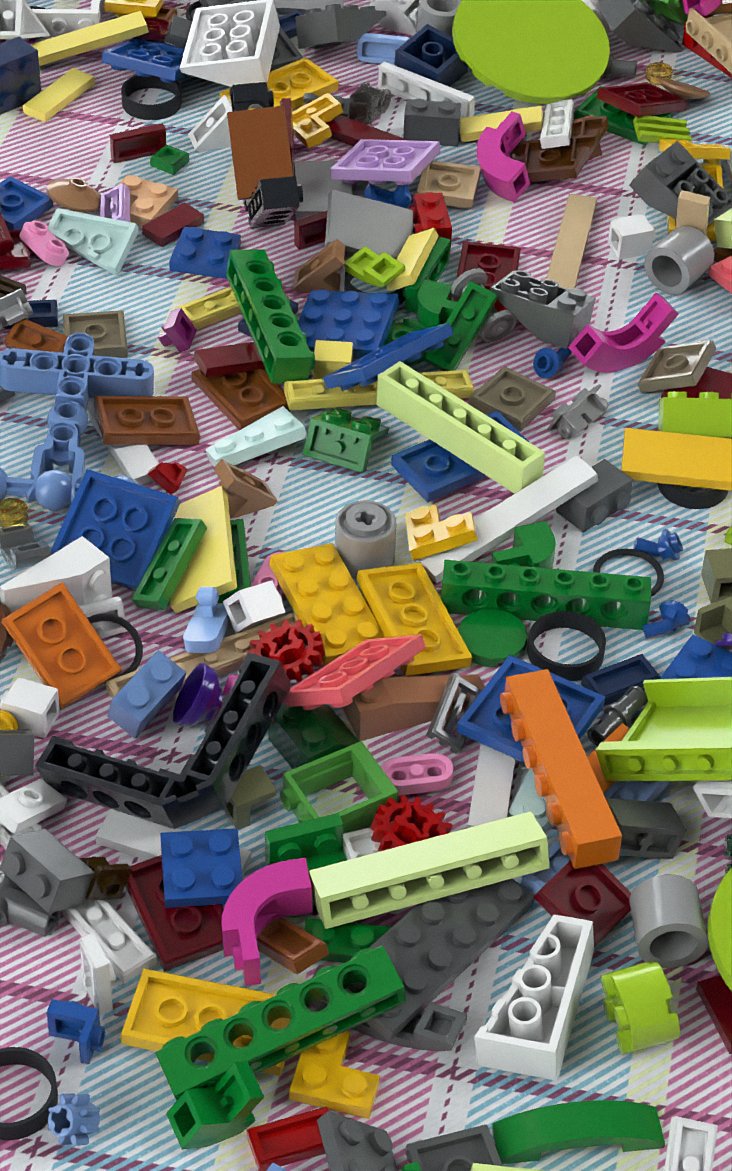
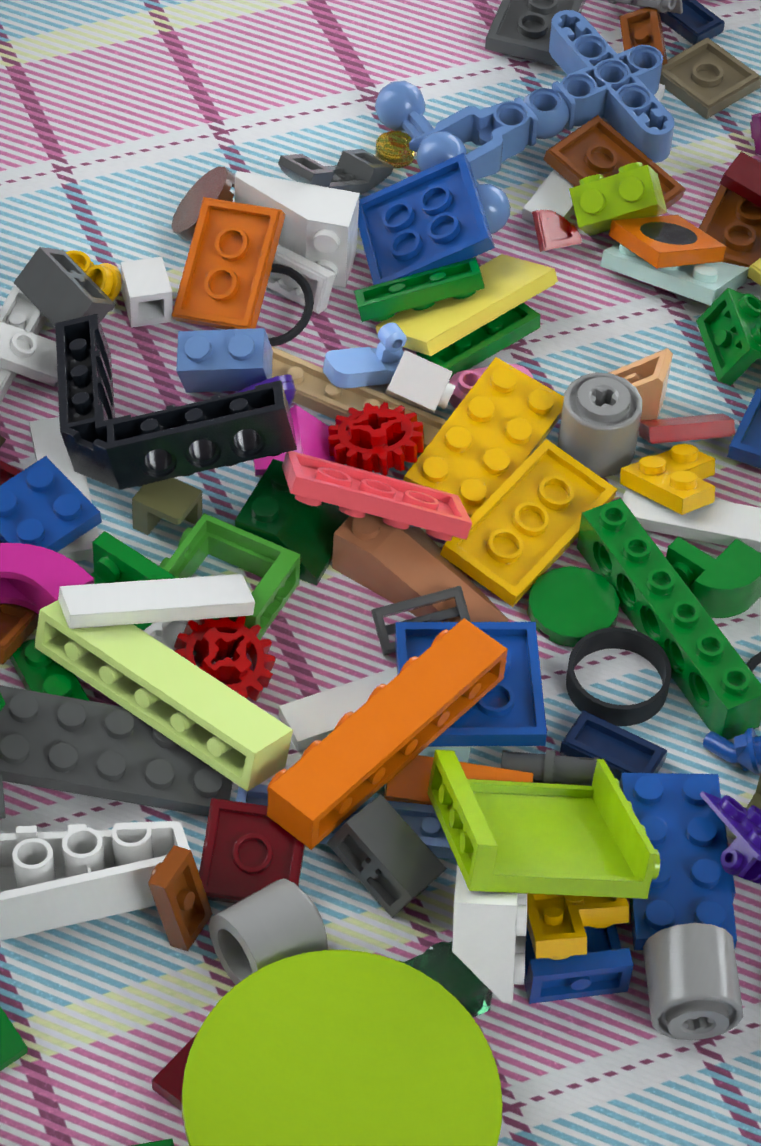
camera: 55 degrees right, 5 degrees up
(186, 426) = (626, 195): none -> lime brick
(237, 425) = (667, 241): none -> orange tile
(244, 490) = (589, 296): medium nougat slope -> none
(345, 491) = (651, 380): none -> light nougat slope
(357, 832) = (156, 601): none -> white tile
(401, 496) = (687, 428): none -> red tile
(419, 773) = (317, 632): bright pink plate -> none
(607, 946) = (180, 897): none -> dark orange plate
(640, 1005) = (127, 961): lime brick -> none

